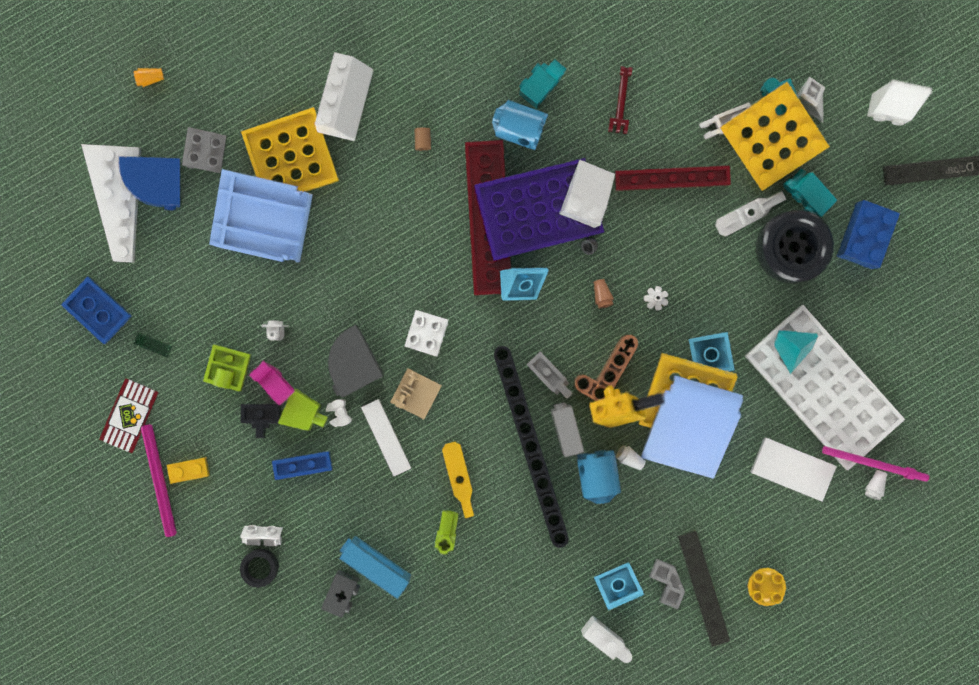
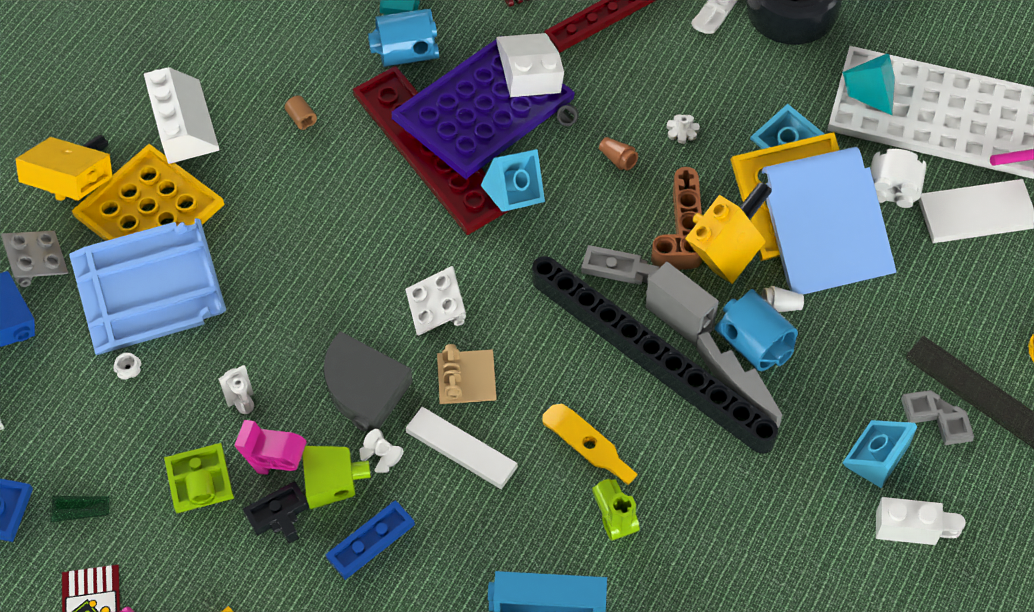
camera: 25 degrees left, 30 degrees down
(218, 266) = (125, 360): none -> white plate
(250, 100) = (66, 167): none -> yellow piece
(570, 501) = (730, 373): none -> light grey slope
(758, 422) = (898, 177): none -> white brick

